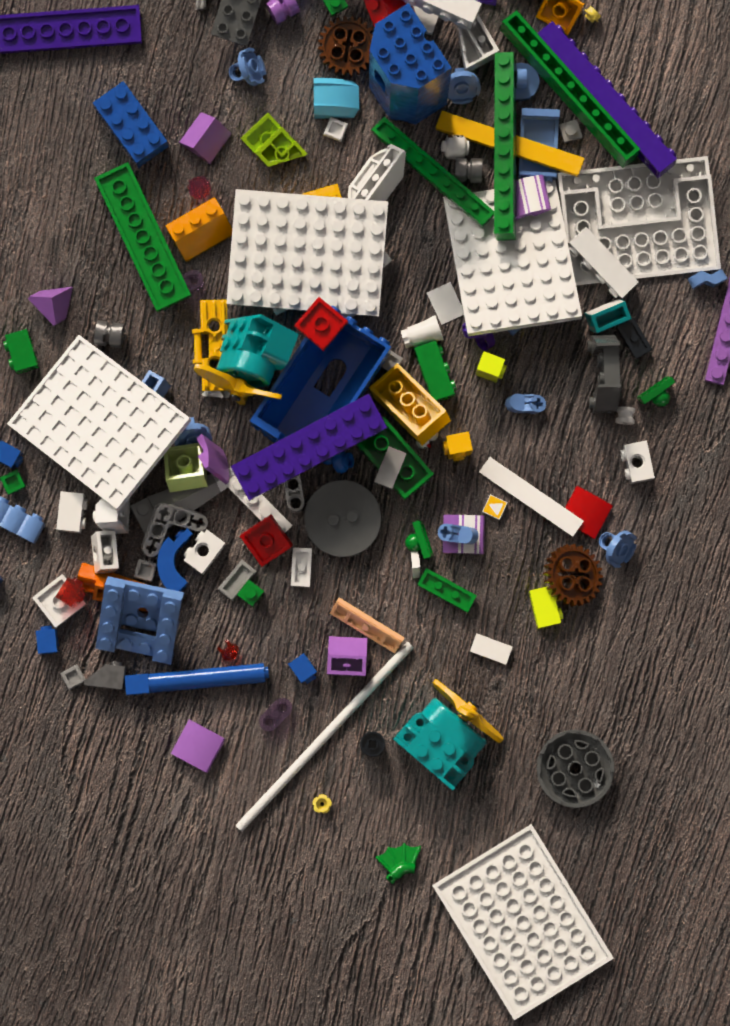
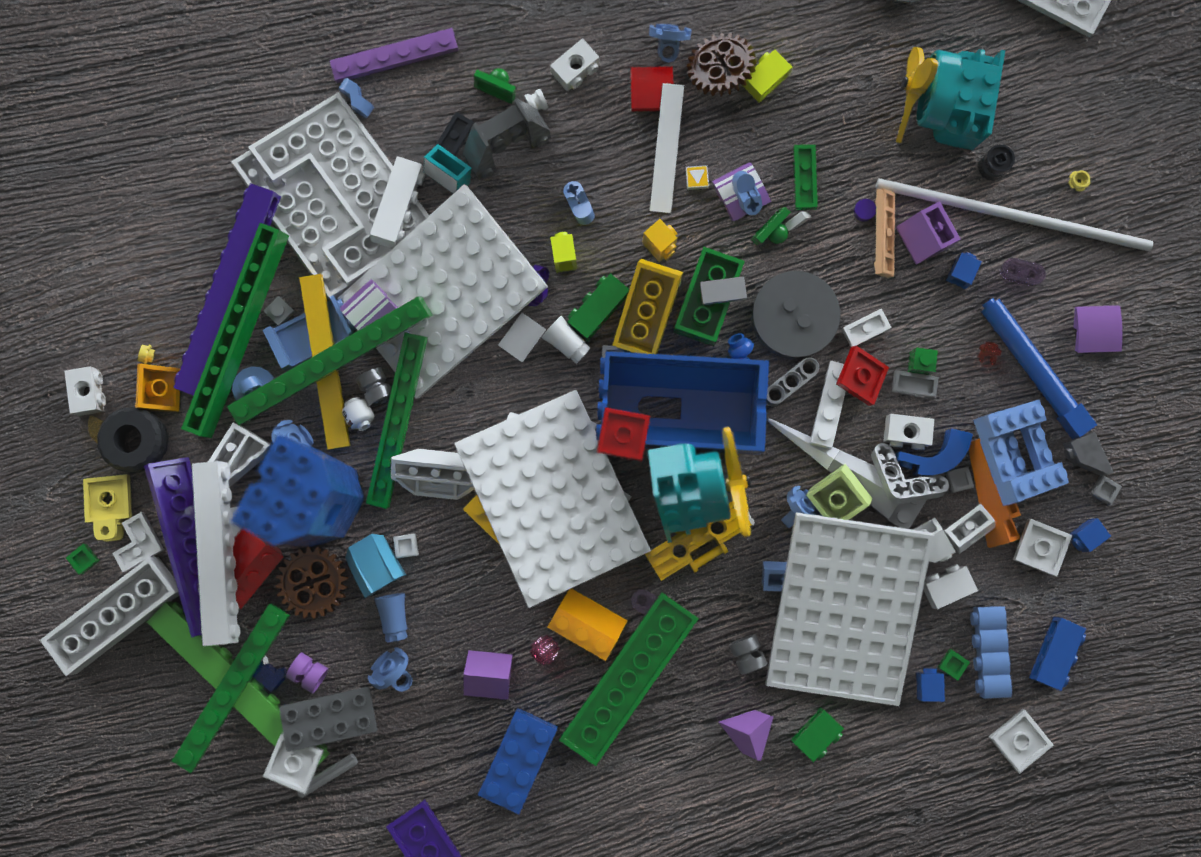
camera: 115 degrees left, 0 degrees up
(71, 592) = (1032, 537): clear red brick -> none
(213, 459) = (816, 470): medium lavender slope -> none
(272, 142) = (455, 603): lime slope -> none
(288, 91) = (392, 616): none -> medium blue plant
(309, 447) = (757, 374): dark purple plate -> none
(395, 622) = (865, 210): none -> dark purple tile
(399, 861) = (1087, 79): green arm -> none
(491, 649) = (835, 105): white tile -> none

